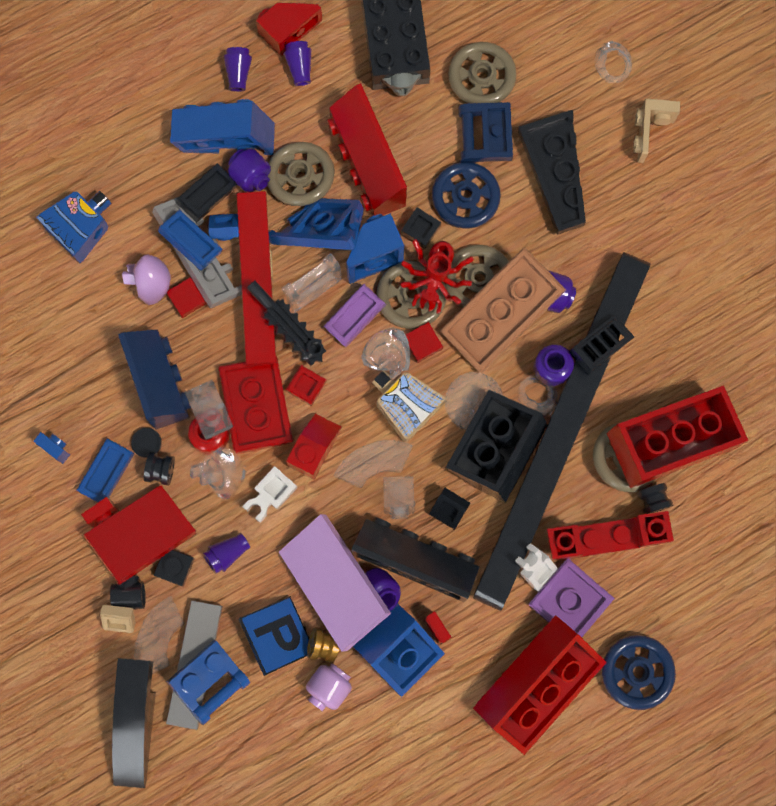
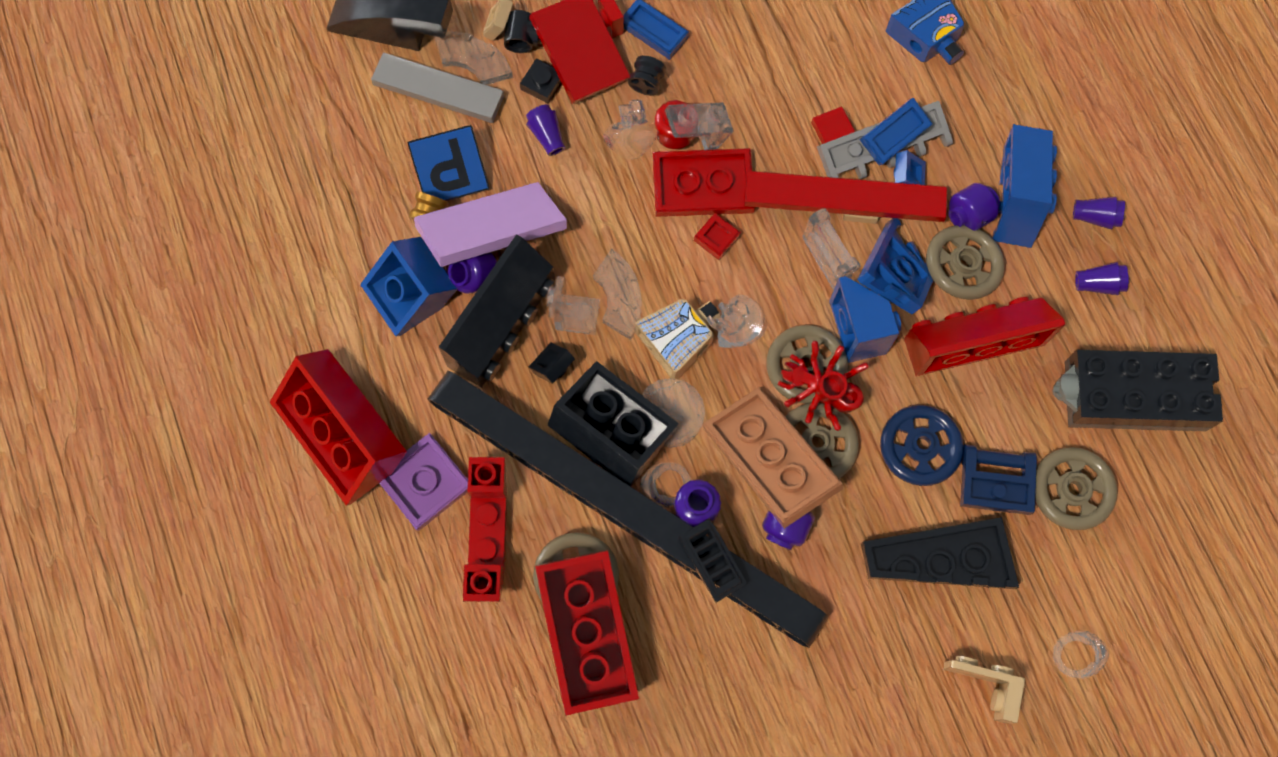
camera: 100 degrees right, 5 degrees down
(146, 441) = (679, 71): black piece -> none
(150, 278) = (858, 89): lavender piece -> none
(155, 377) = (747, 74): dark blue slope -> none
(201, 674) = (423, 86): blue plate -> none
(206, 193) = (951, 159): black tile -> none
(272, 490) = (603, 183): white plate -> none
(287, 23) = (1153, 272): red slope -> none
(287, 324) = (786, 219): black piece -> none
(313, 446) = (645, 230): red slope -> none
(328, 687) = (384, 209): lavender head -> none
(354, 315) = (789, 296): medium lavender tile -> none
(421, 227) = (885, 384): black plate -> none
(423, 342) = (748, 367): red tile -> none
(437, 628) = (422, 329): red tile -> none
(536, 567) = (464, 442): white plate -> none
(655, 498) = (520, 597): black wheel -> none
(656, 654) = (343, 566): dark blue plate -> none

